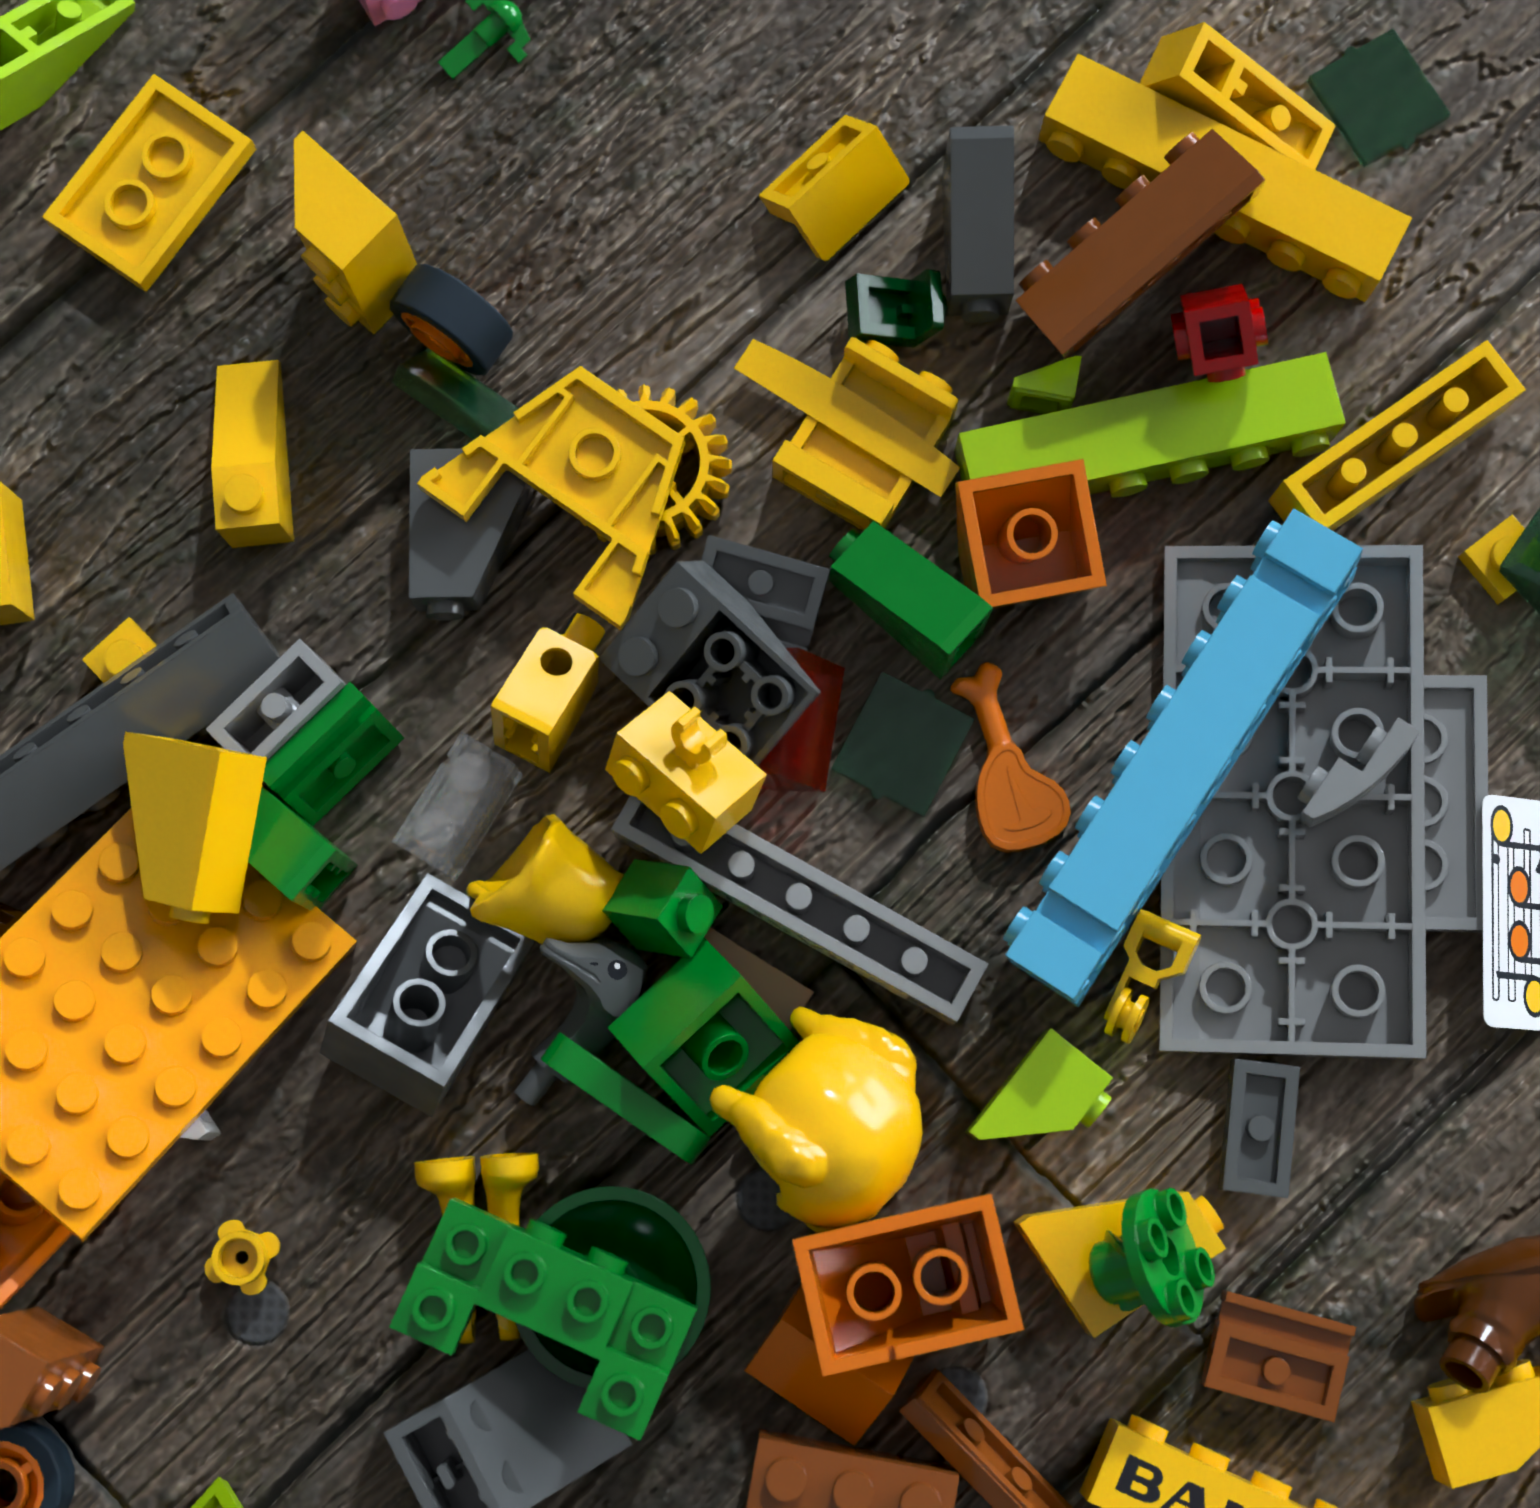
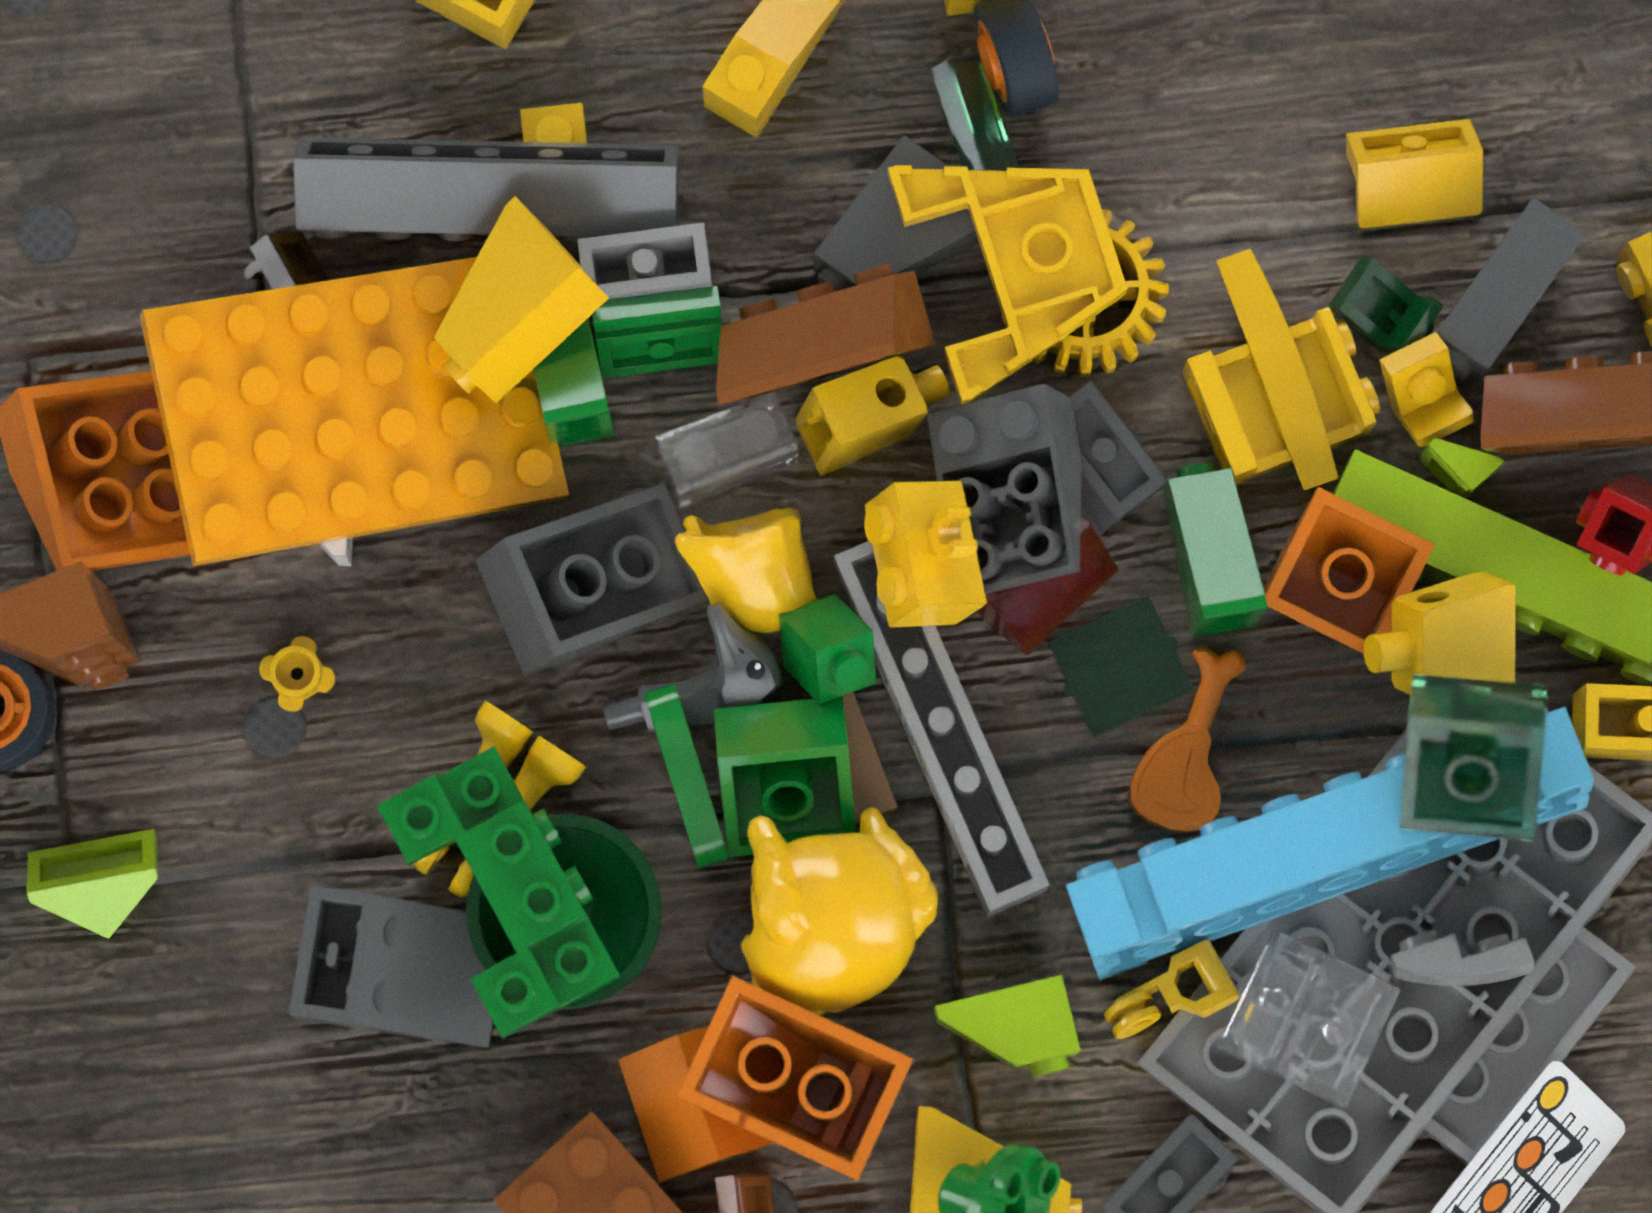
camera: 35 degrees right, 0 degrees up
(464, 657) = (821, 334): none -> dark orange slope
(974, 349) = (1425, 390): none -> yellow bracket
(1155, 526) = (1449, 631): none -> yellow torso
(1258, 601) = (1473, 757): none -> clear green slope
(1271, 912) = (1309, 1018): none -> clear slope

